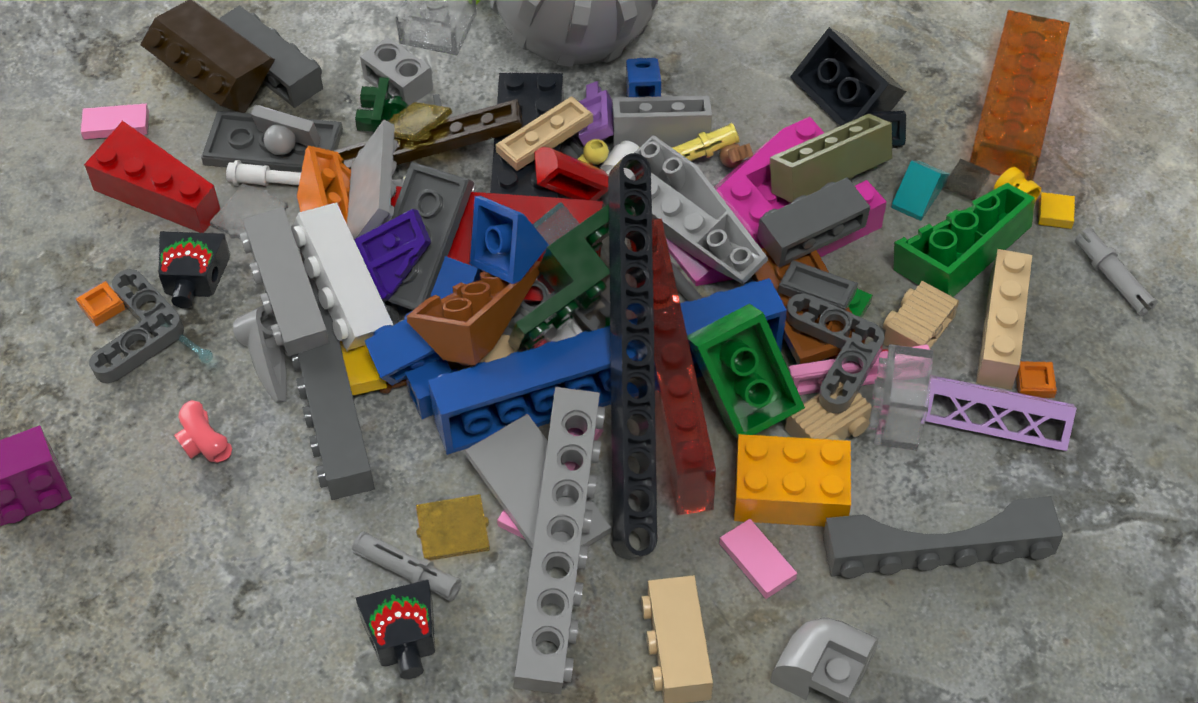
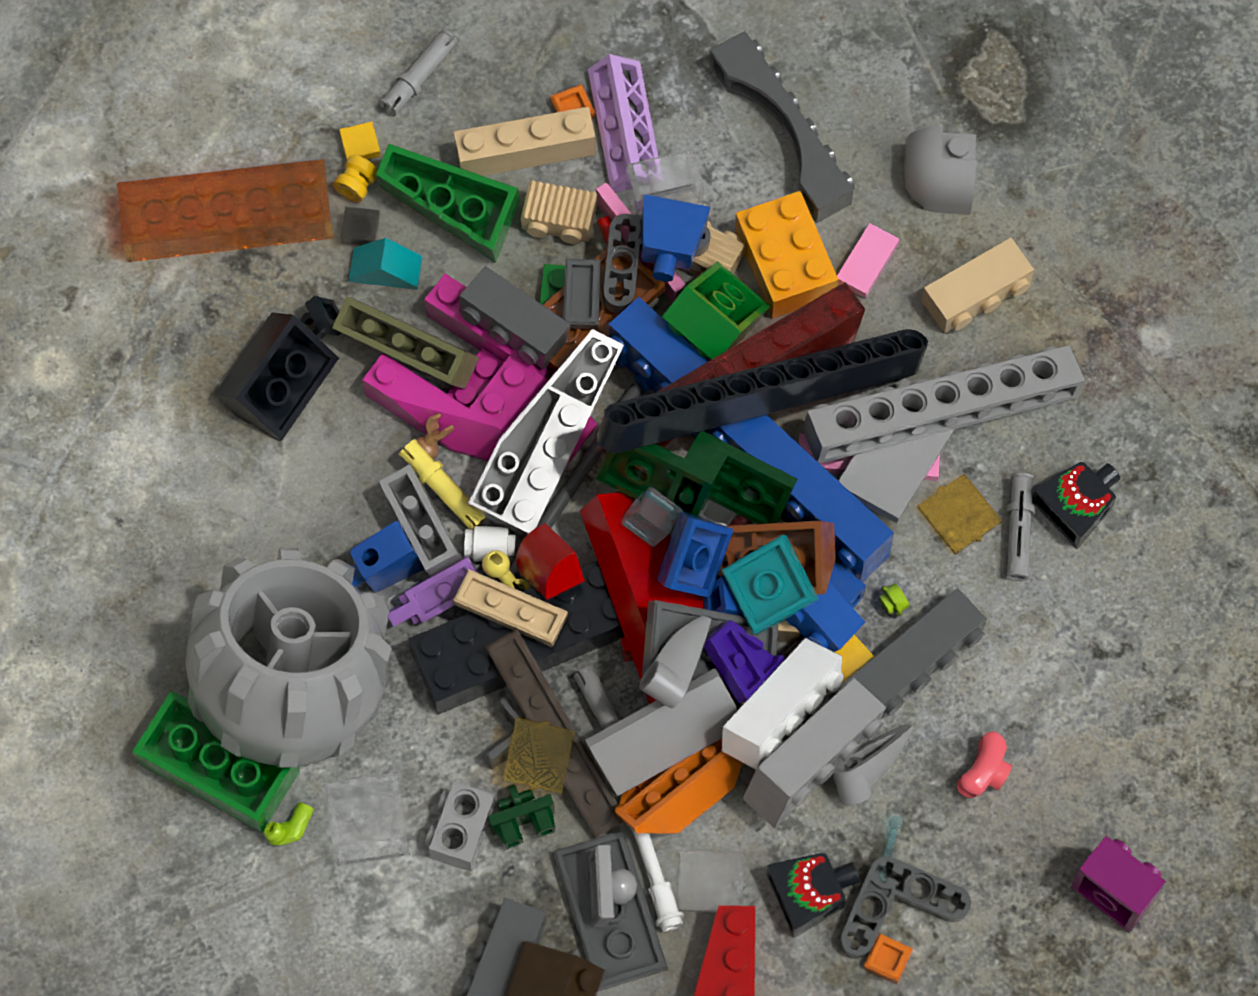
camera: 115 degrees left, 15 degrees up
(399, 432) = (893, 599): none -> lime plate
(407, 178) = (675, 665): none -> light grey piece
(443, 288) = (770, 584): none -> teal tile
(839, 355) = (671, 234): none -> blue torso

